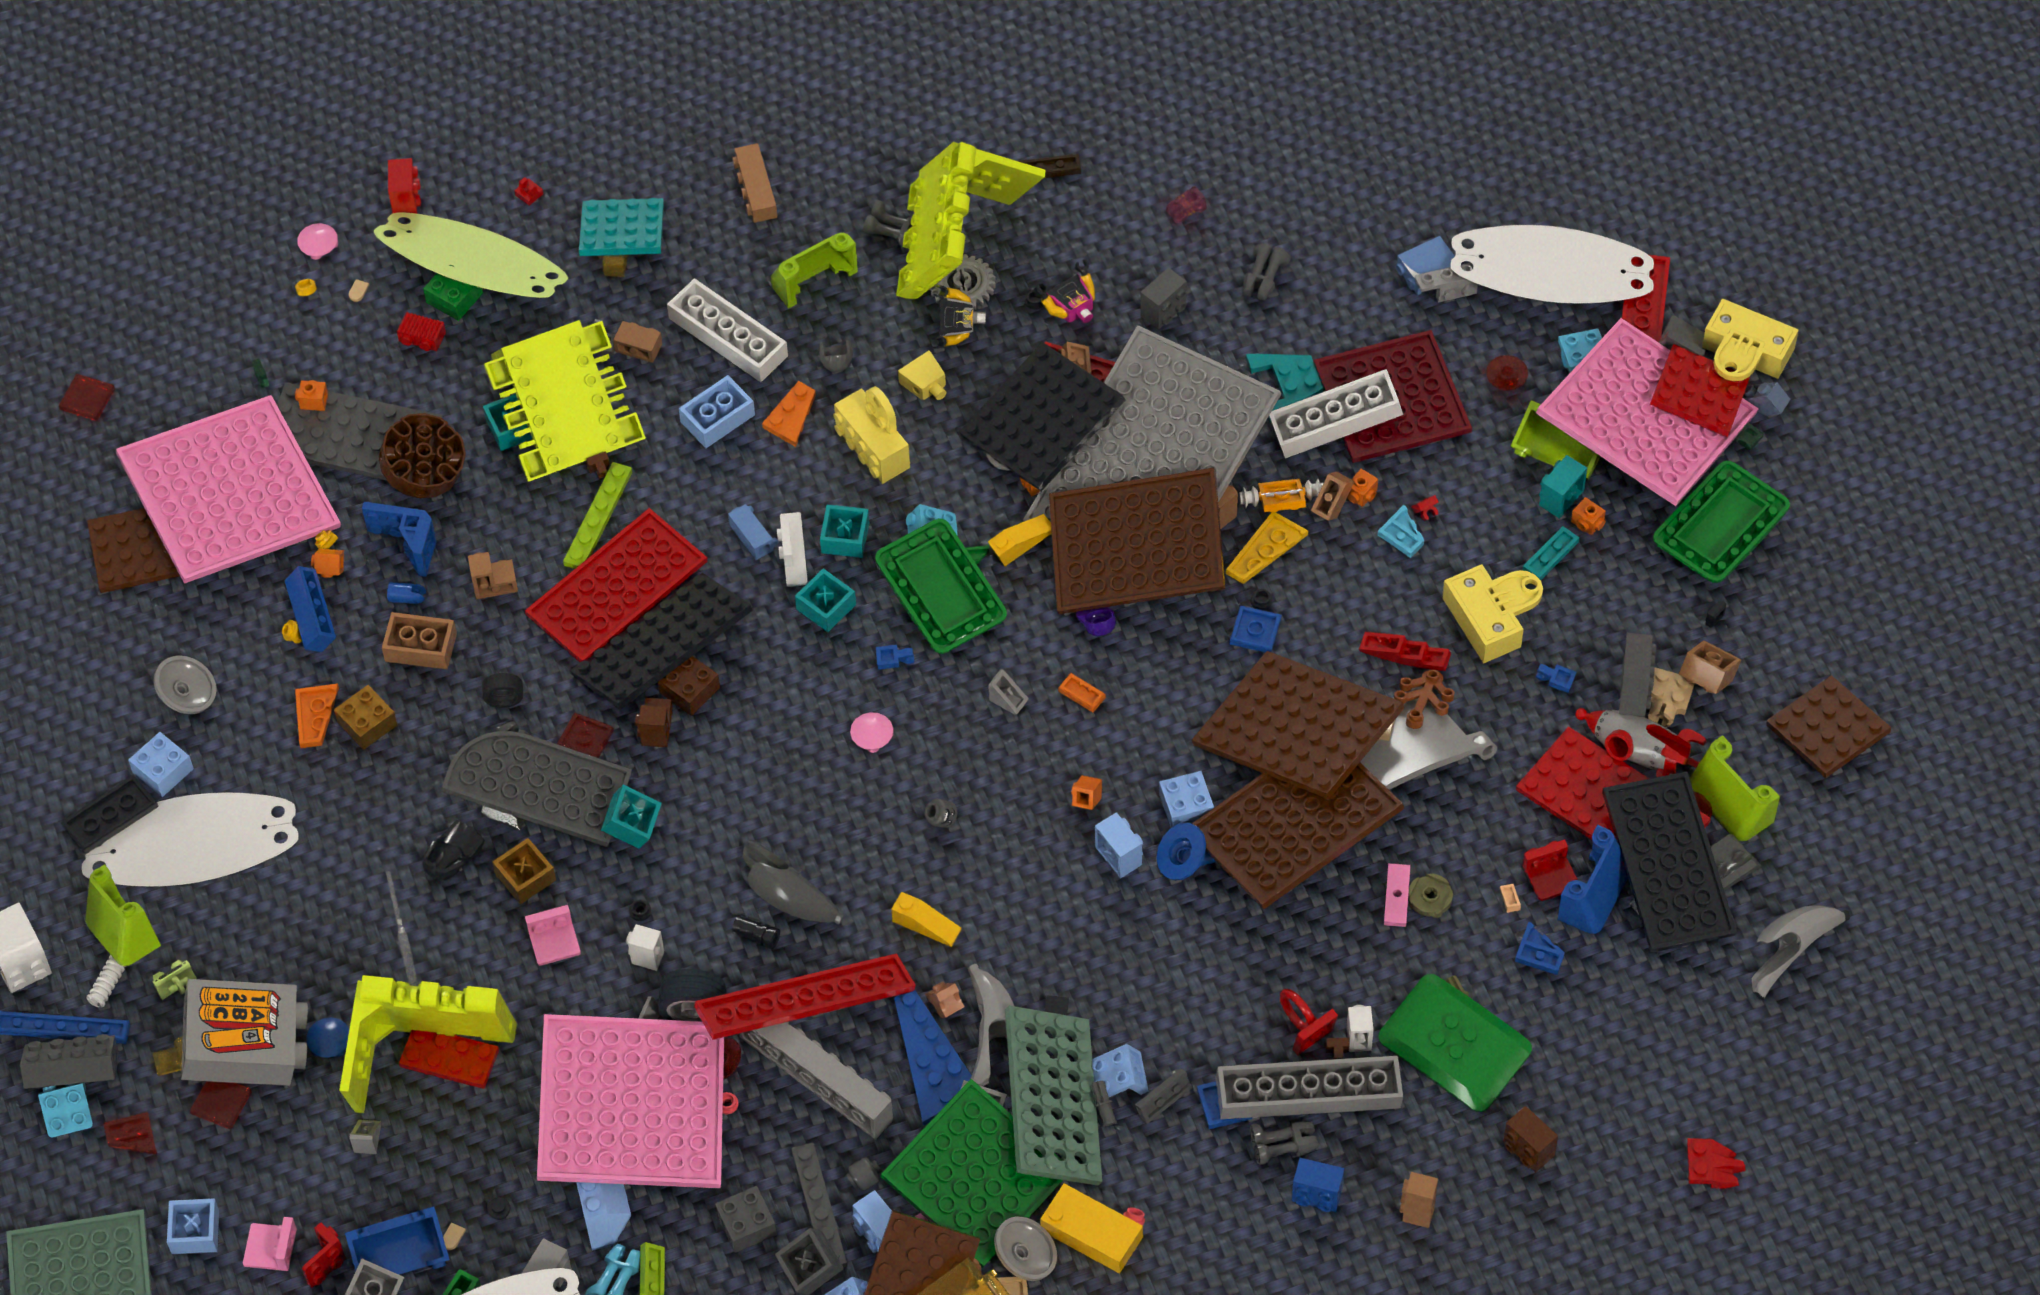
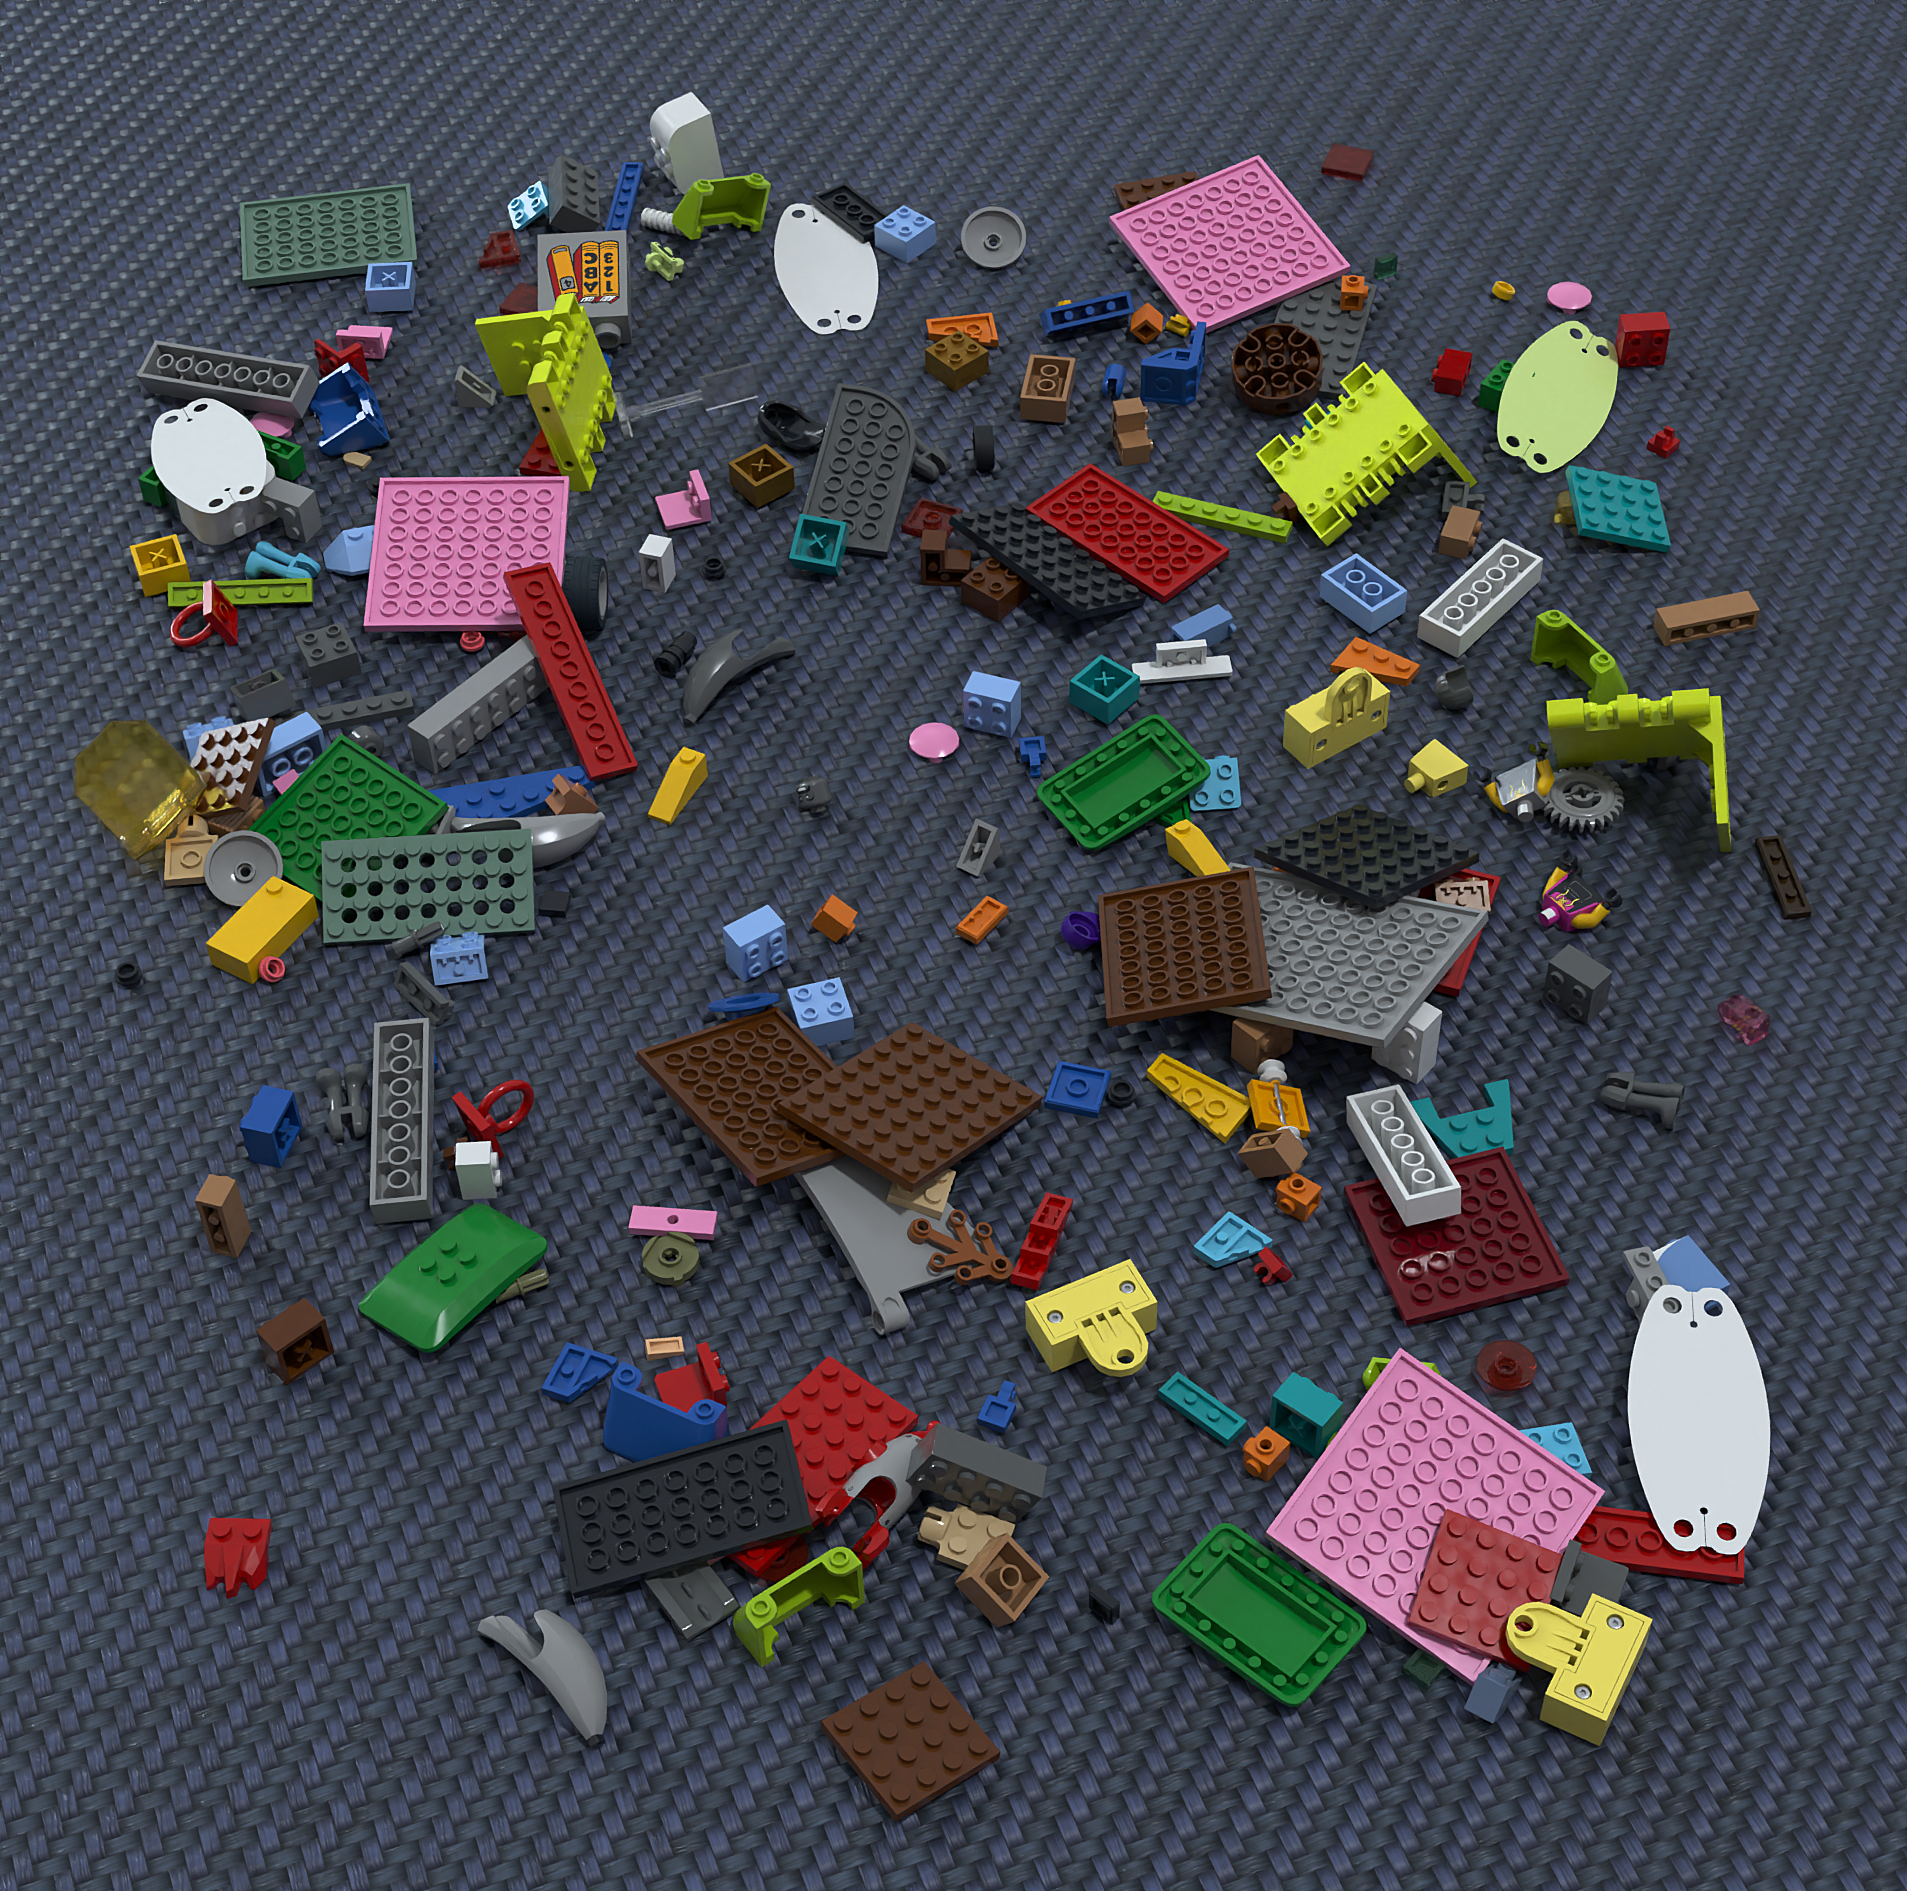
camera: 90 degrees right, 10 degrees down
(358, 290) = (1507, 330): tan piece -> none
(844, 531) = (1201, 702): teal brick -> none
(845, 680) = (992, 704): none -> light blue brick

